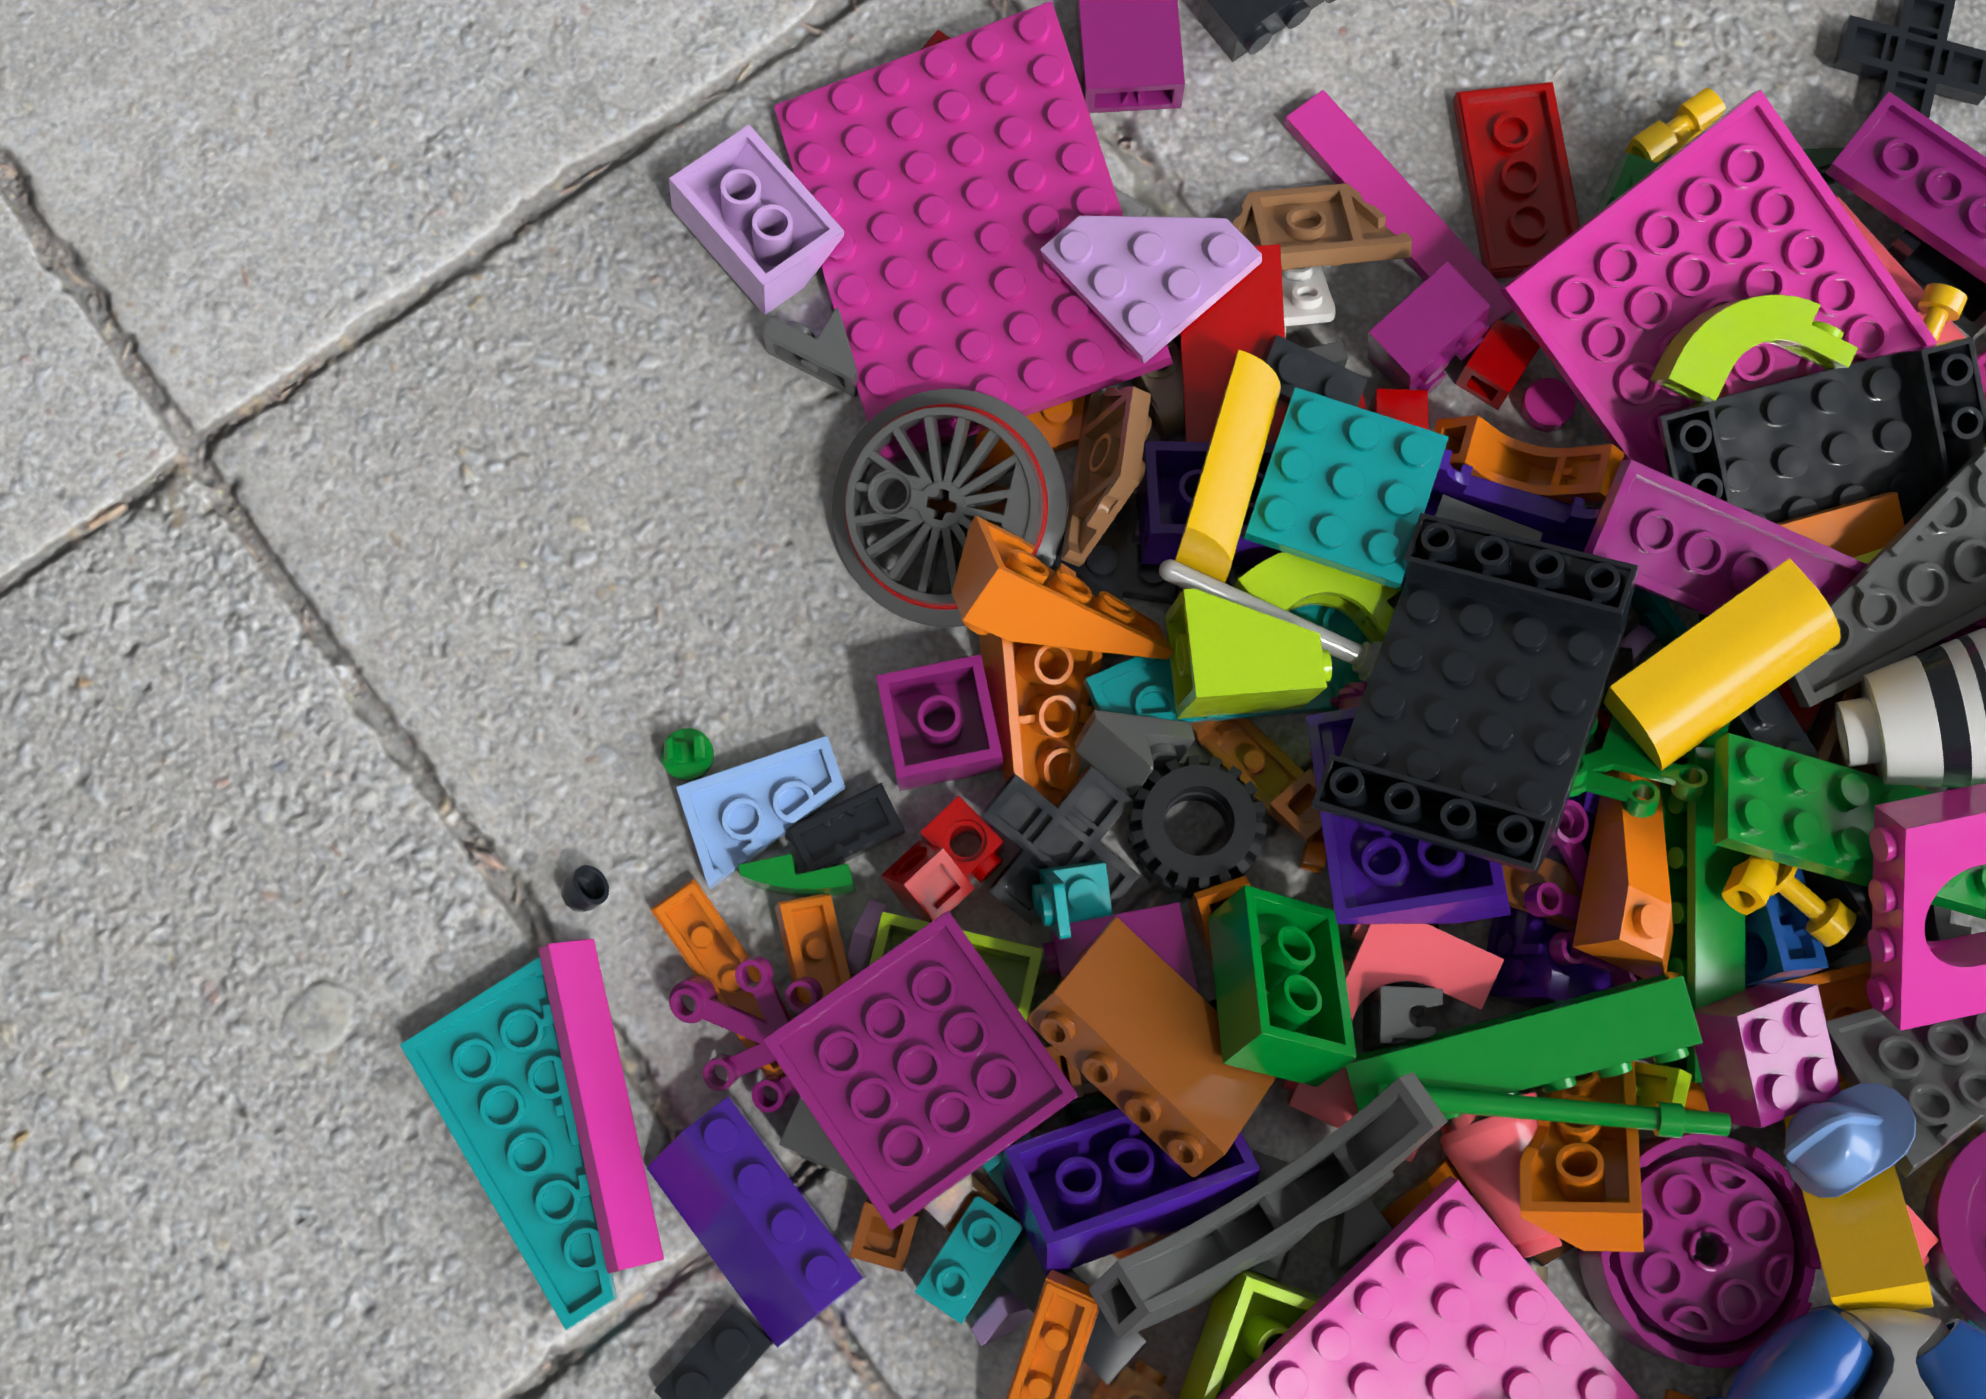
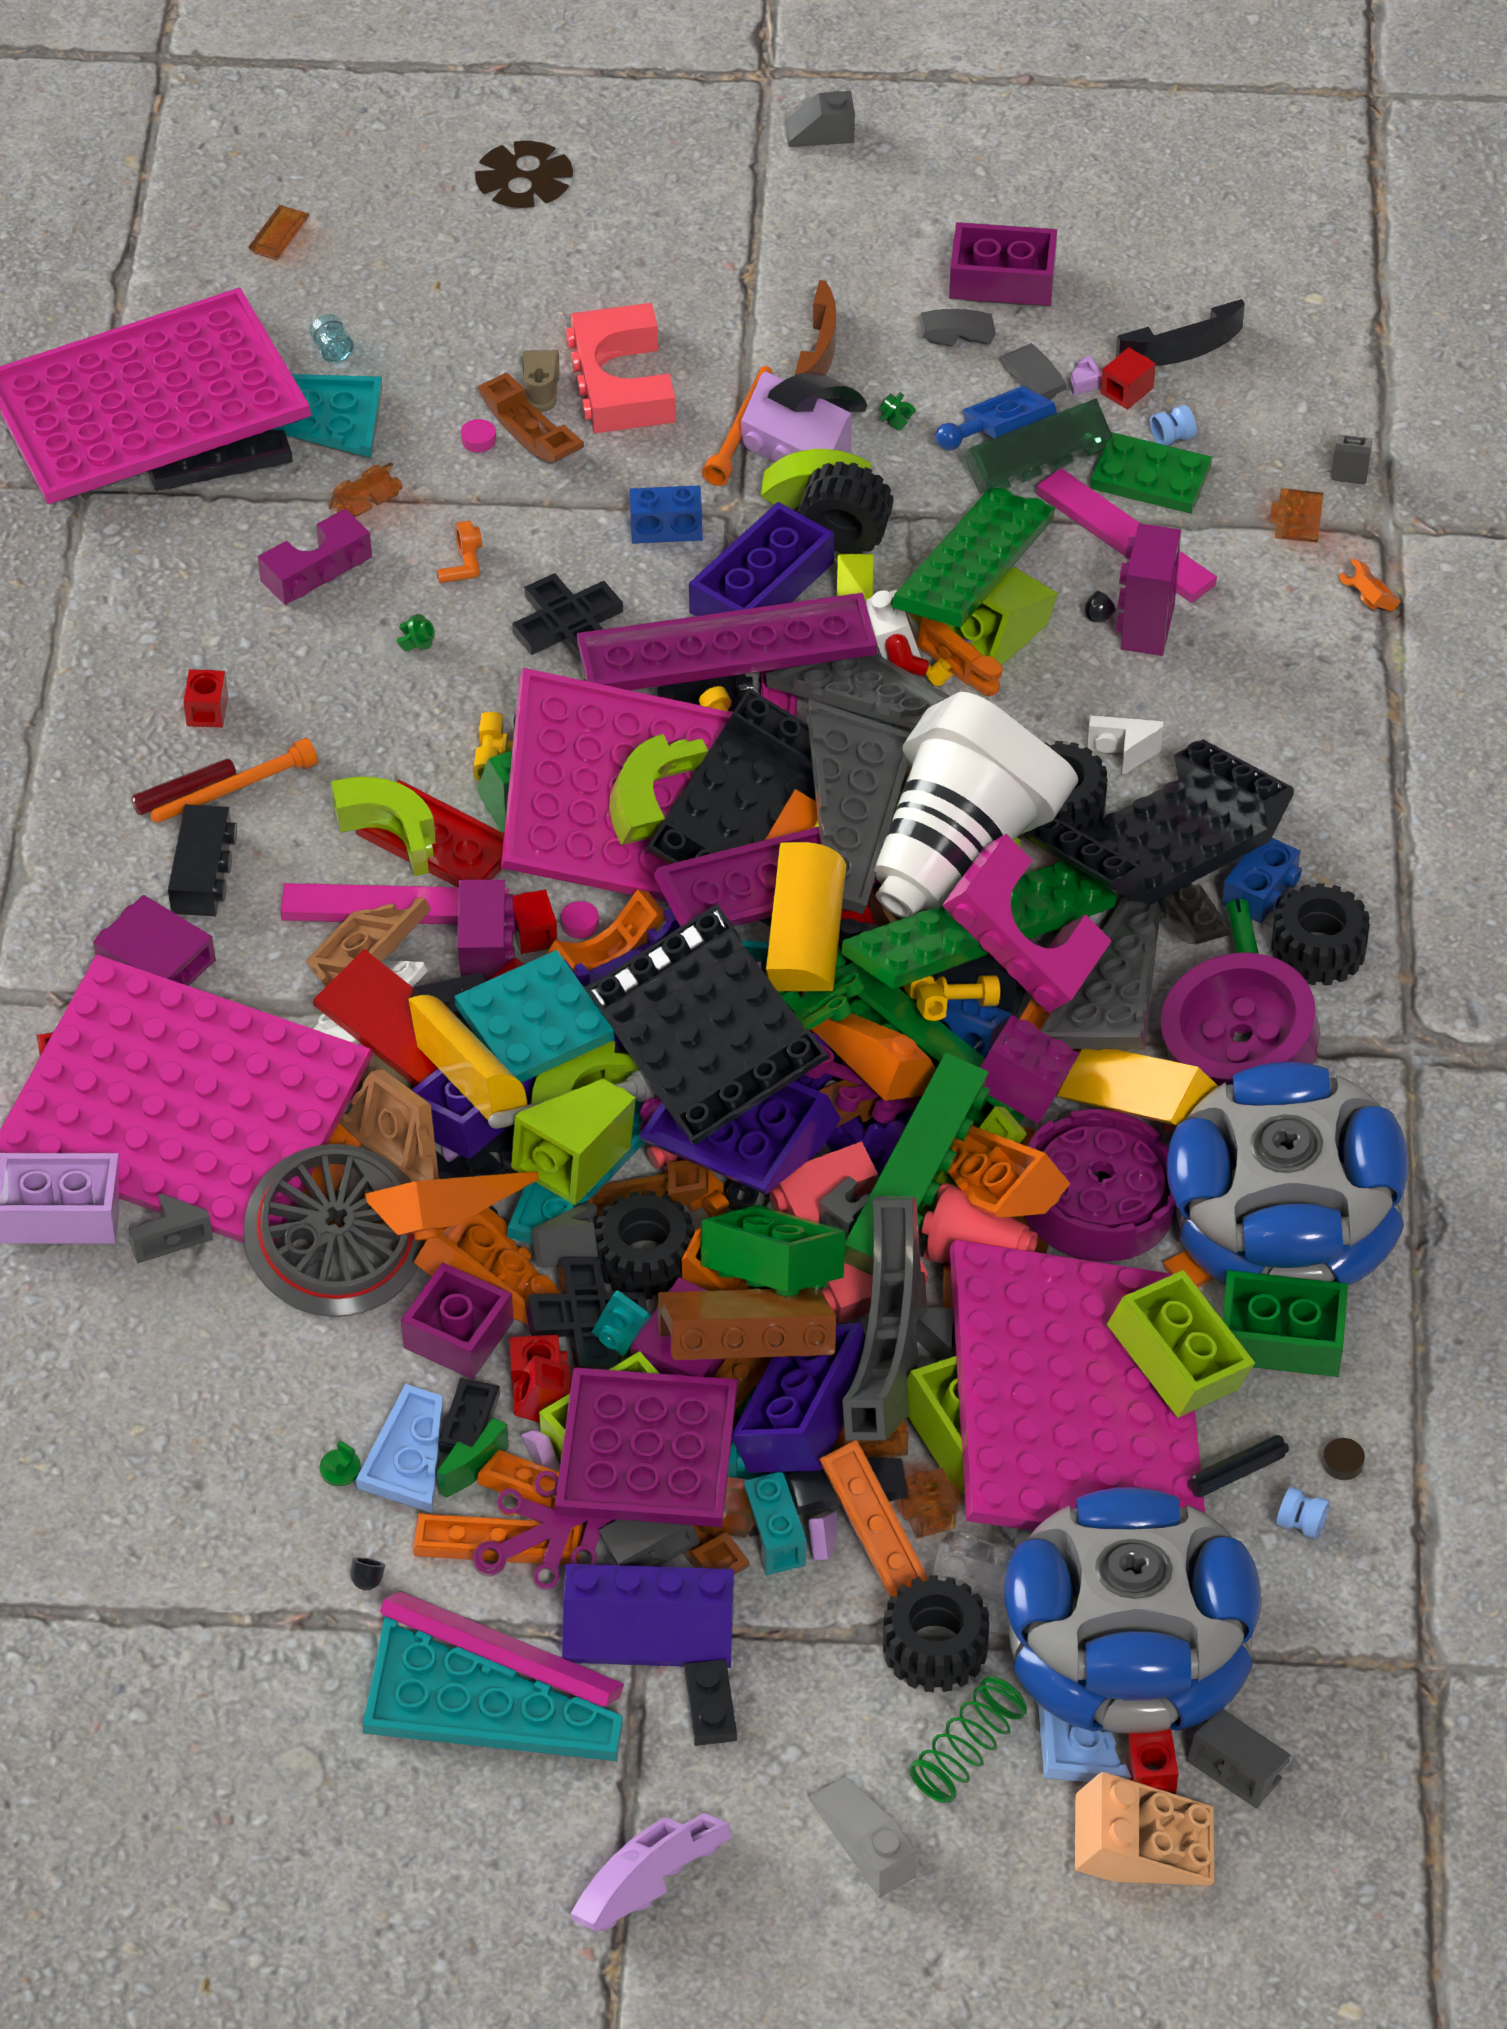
camera: 50 degrees left, 25 degrees down
(1150, 272) = (313, 1018): lavender plate -> none
(1498, 96) = (388, 806): none -> lime arch
(1665, 1118) = (1010, 1122): green bar -> none
(1848, 1139) = (1101, 1062): medium blue piece -> none

